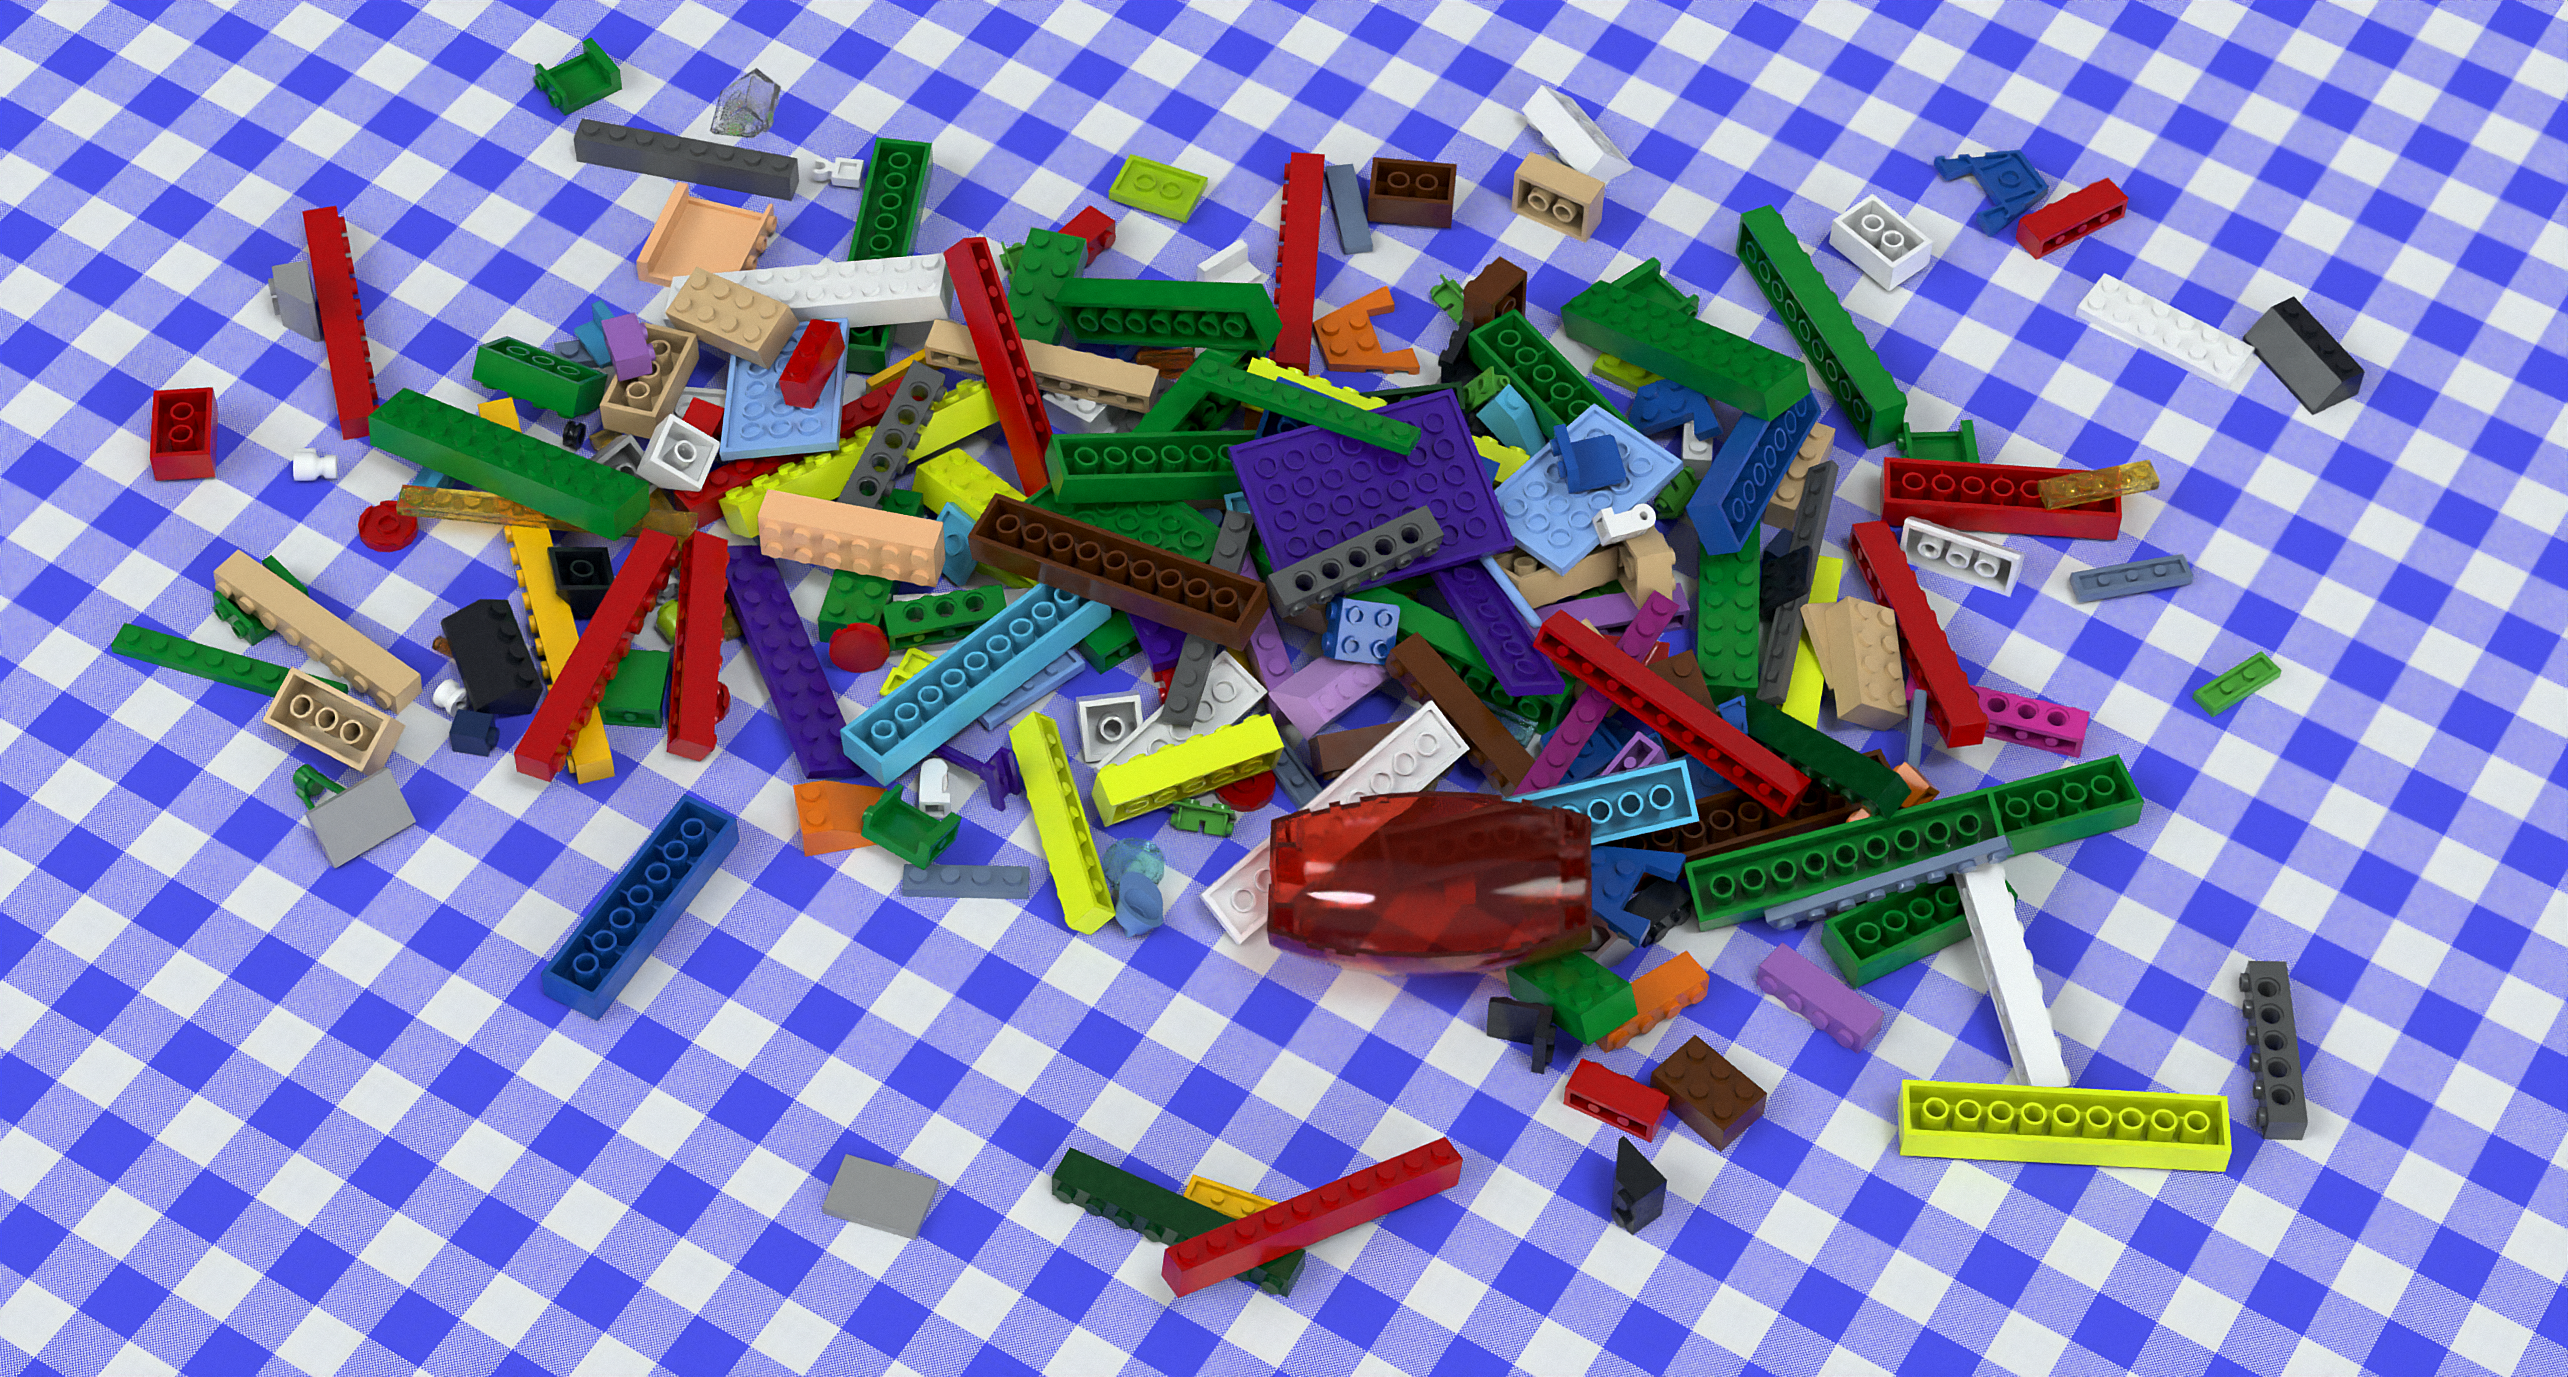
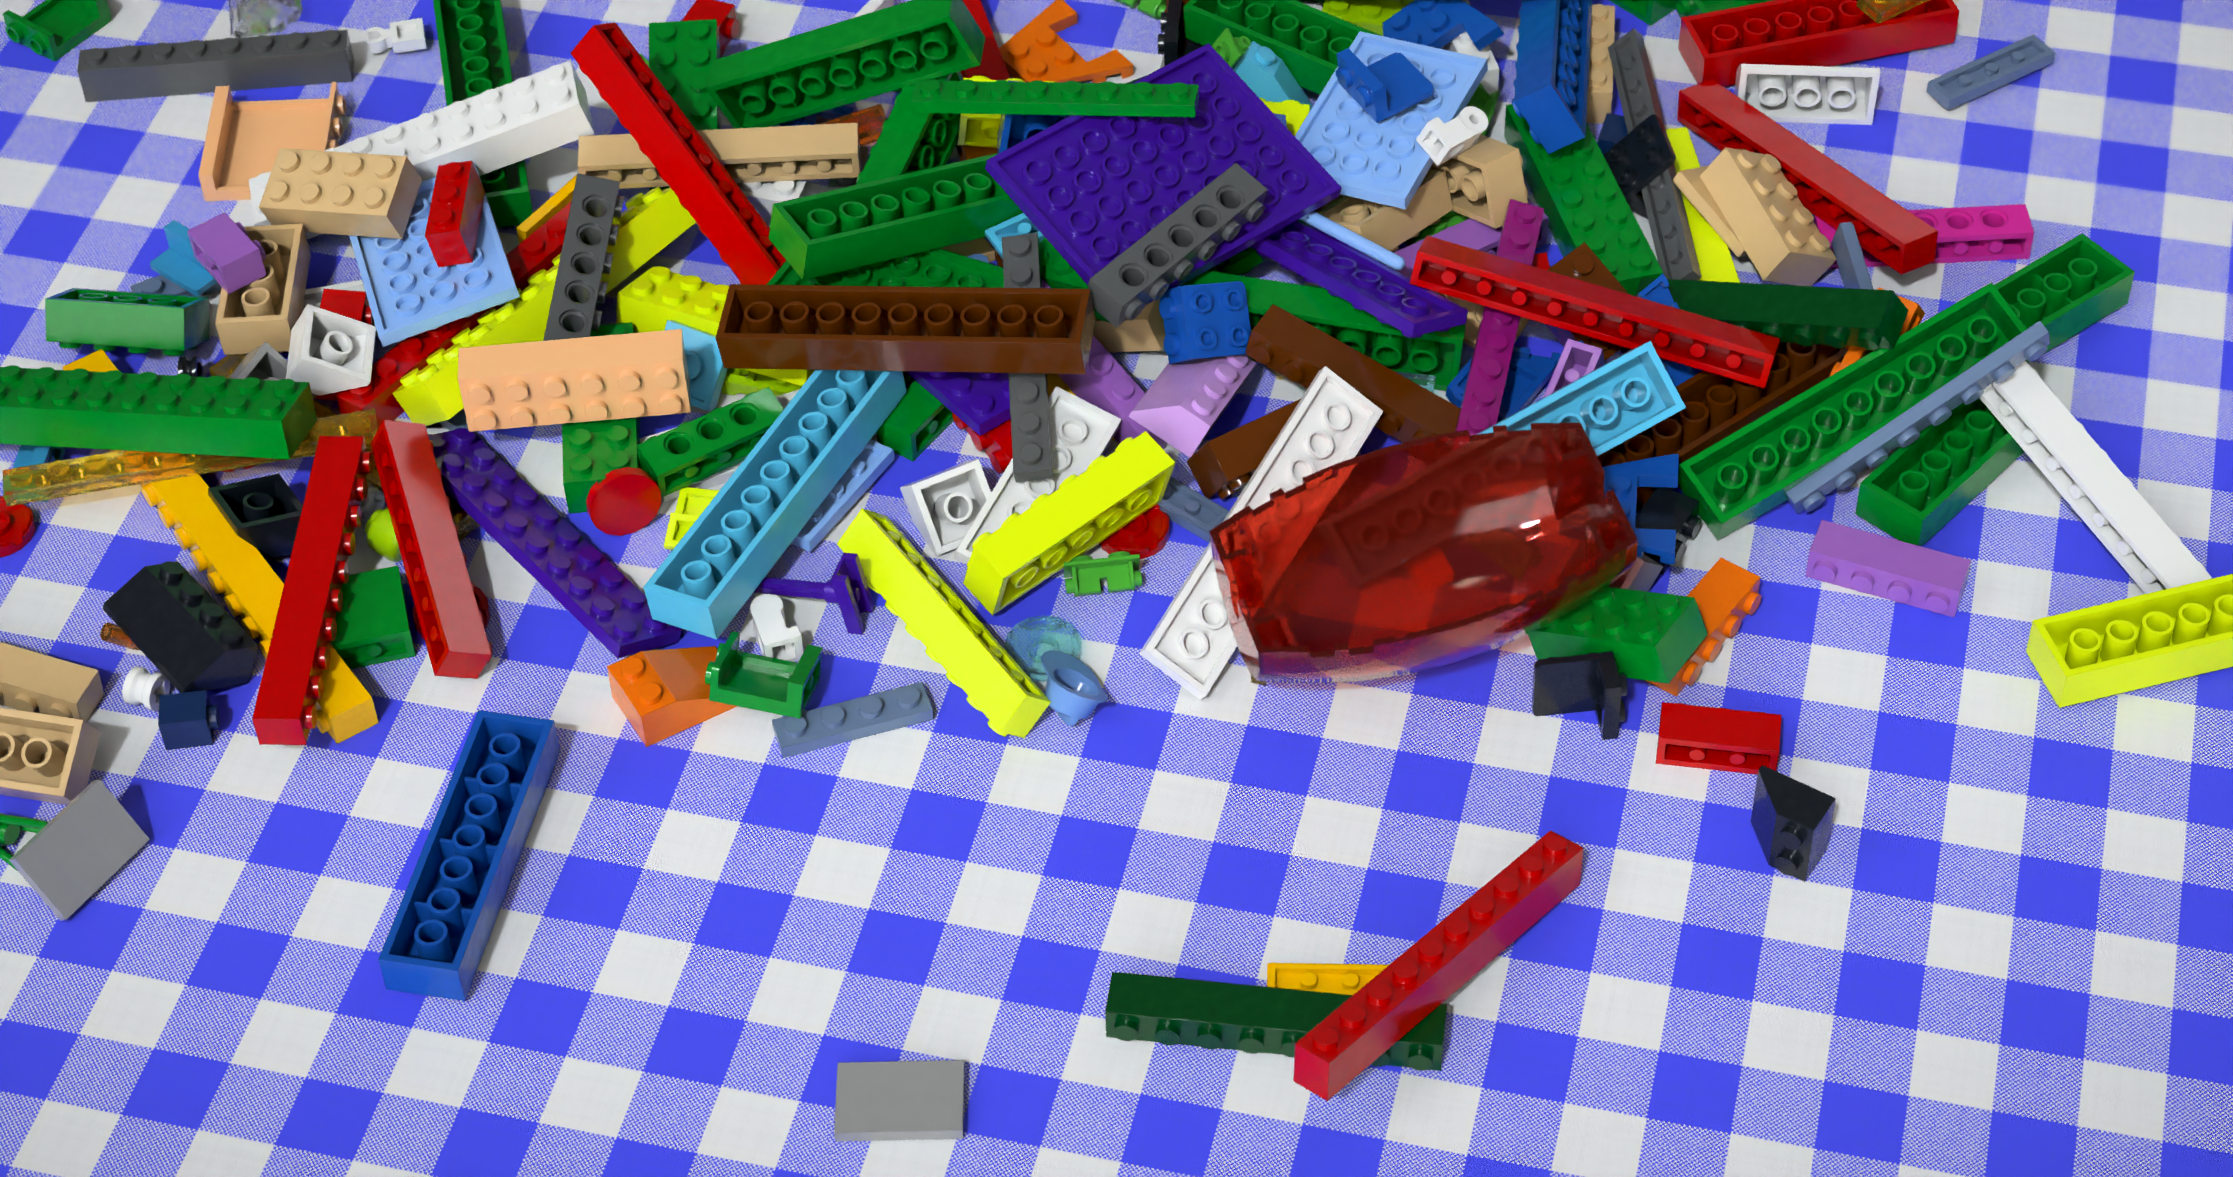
camera: 15 degrees left, 5 degrees down
(1709, 1093) = (1820, 700): reddish brown brick -> none
(2236, 684) = (2153, 144): bright green tile -> none

